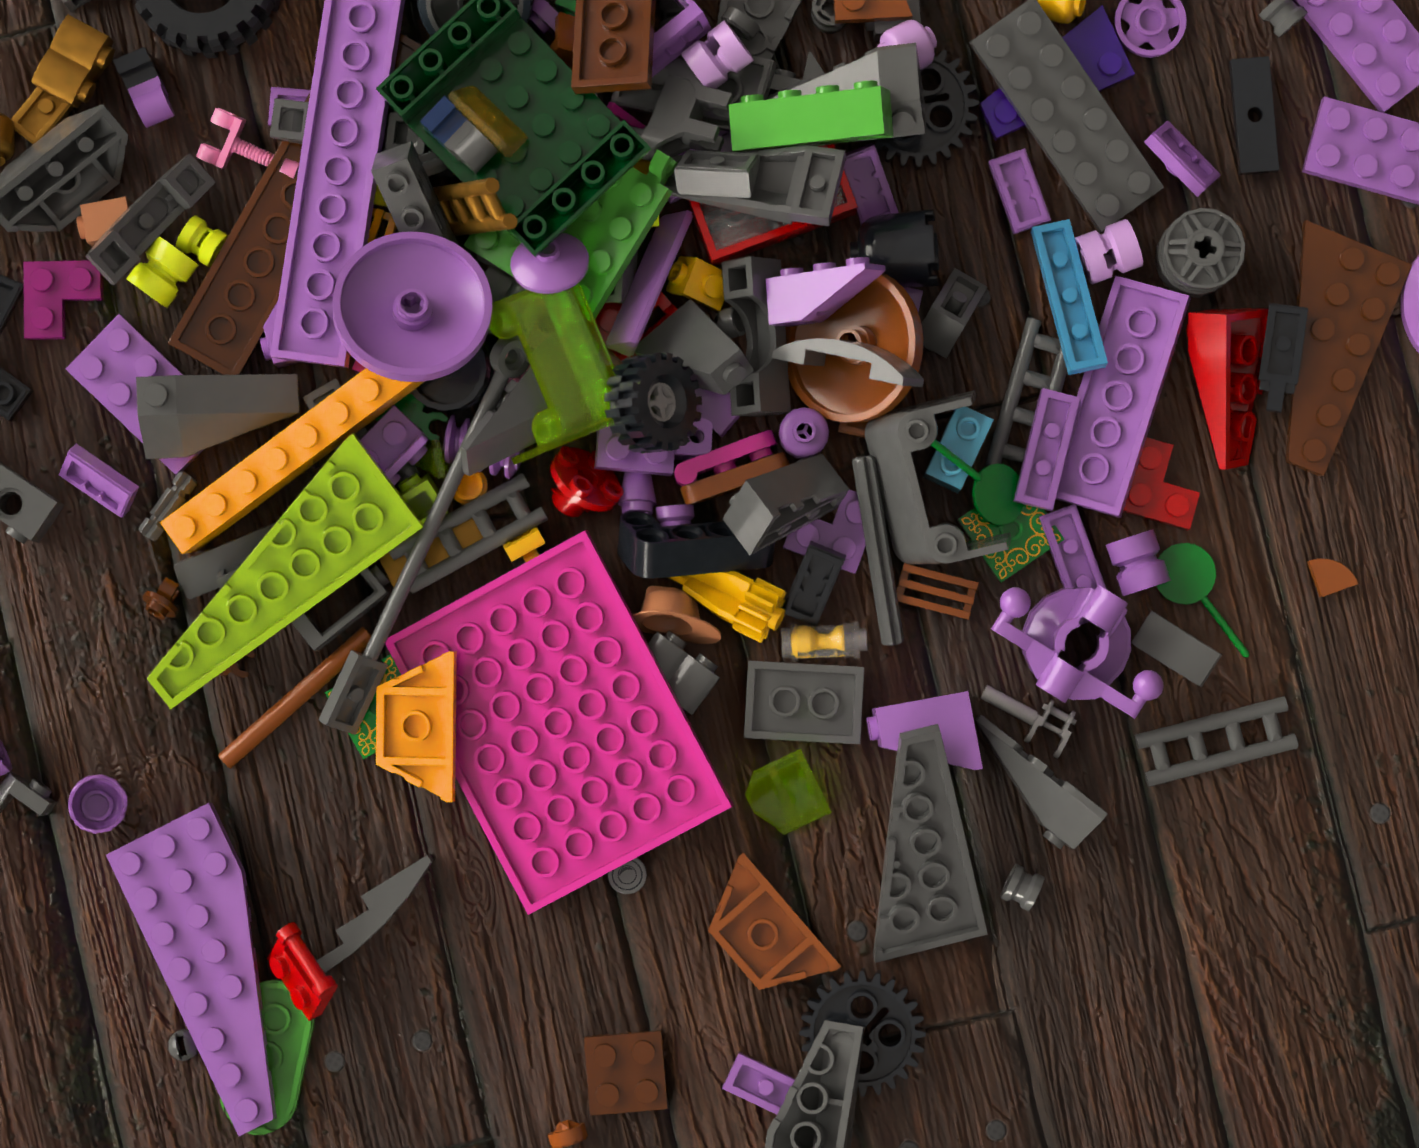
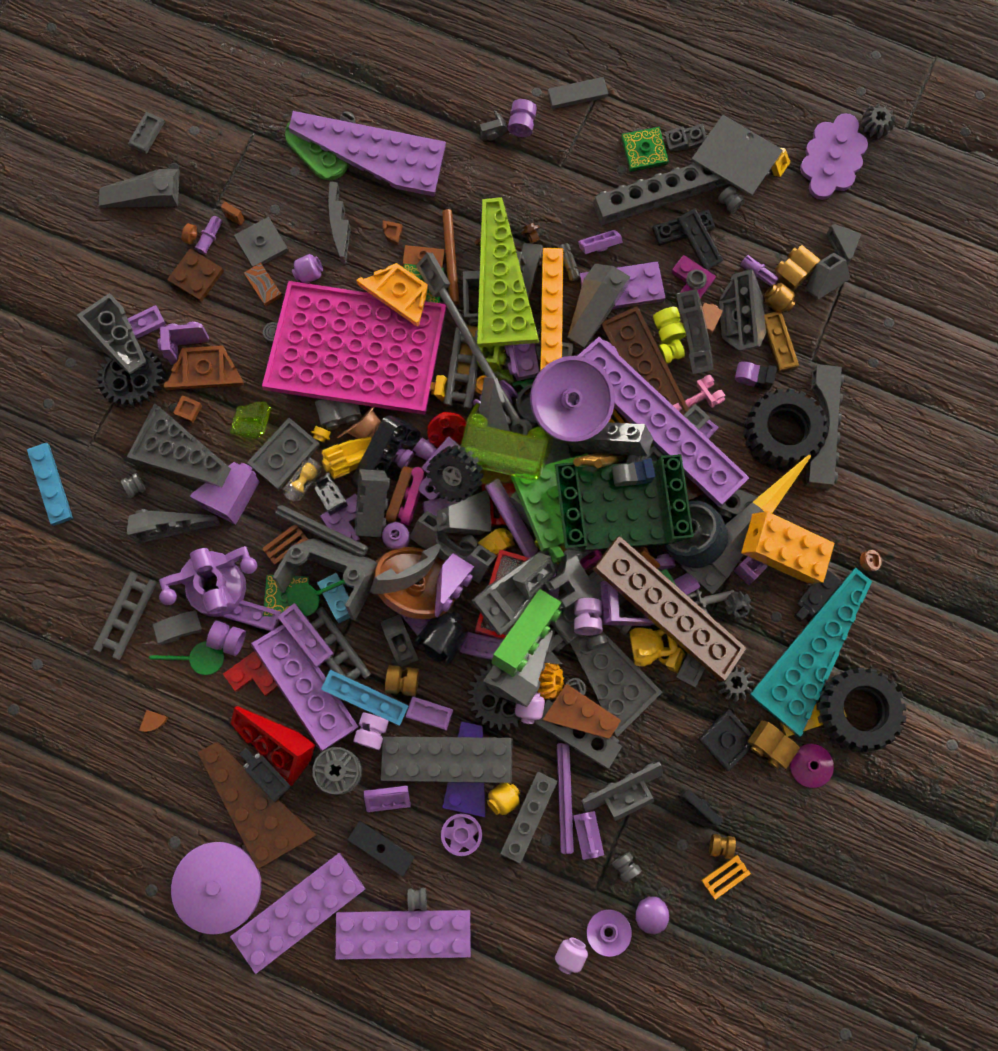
camera: 125 degrees right, 10 degrees down
(56, 283) = (696, 279): none -> dark grey plate
(73, 62) = (788, 351): pearl gold brick -> none
(97, 803) = (468, 151): medium lavender hair -> none
(301, 972) = (344, 176): red plate -> none
(321, 822) = (392, 231): none -> dark orange tile
(331, 746) = (414, 254): none -> dark orange plate
(483, 1094) = (232, 213): none -> dark orange tile
(486, 901) = (307, 268): none -> medium lavender head
(488, 119) = (632, 491): clear yellow slope -> none
(495, 1013) = (261, 242): none -> dark grey plate
(545, 1105) = (208, 235): none -> medium lavender axle
(554, 269) = (542, 473): medium lavender dish -> none
(561, 954) = (262, 284): none -> dark orange tile
(731, 671) = (320, 434): none -> yellow plate
(774, 1008) = (176, 335): none -> medium lavender bracket
(845, 45) = (551, 681): none -> light orange gear
(846, 904) = (187, 409): none -> dark orange plate
(1017, 268) = (401, 680): none -> pearl gold wheel
(1030, 715) = (201, 544): light grey piece -> none
(1114, 1019) = (49, 484): none -> dark azure plate

